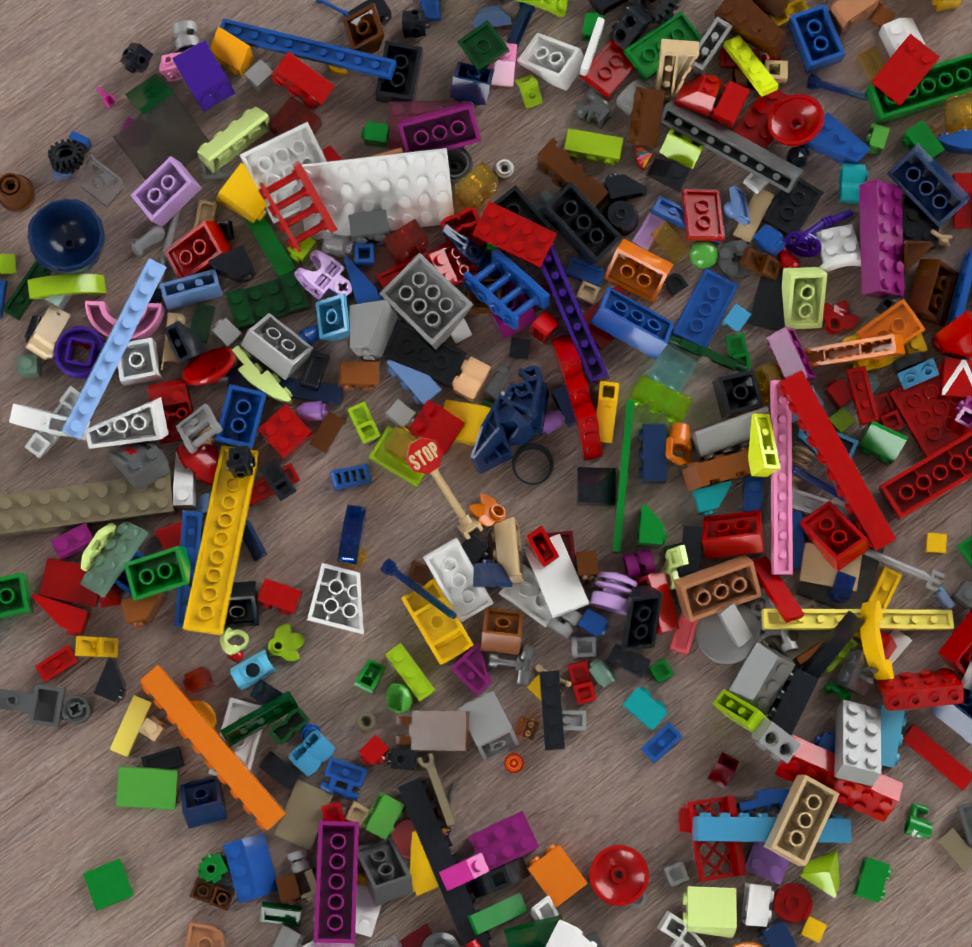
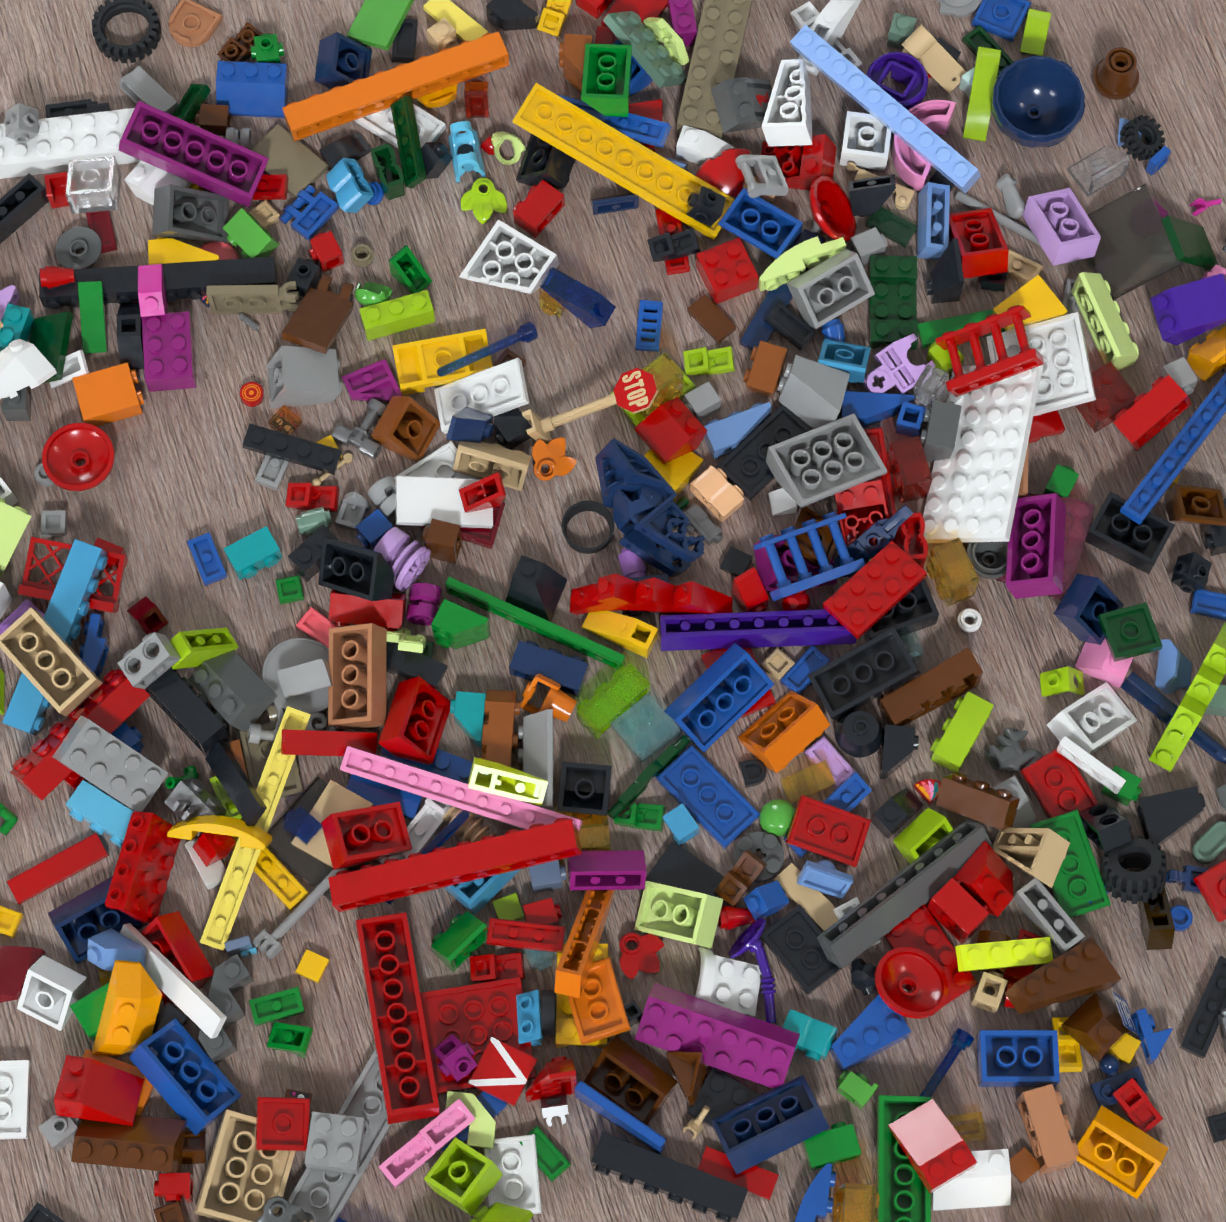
camera: 110 degrees right, 10 degrees down
(312, 411) = (741, 307): medium lavender brick -> none

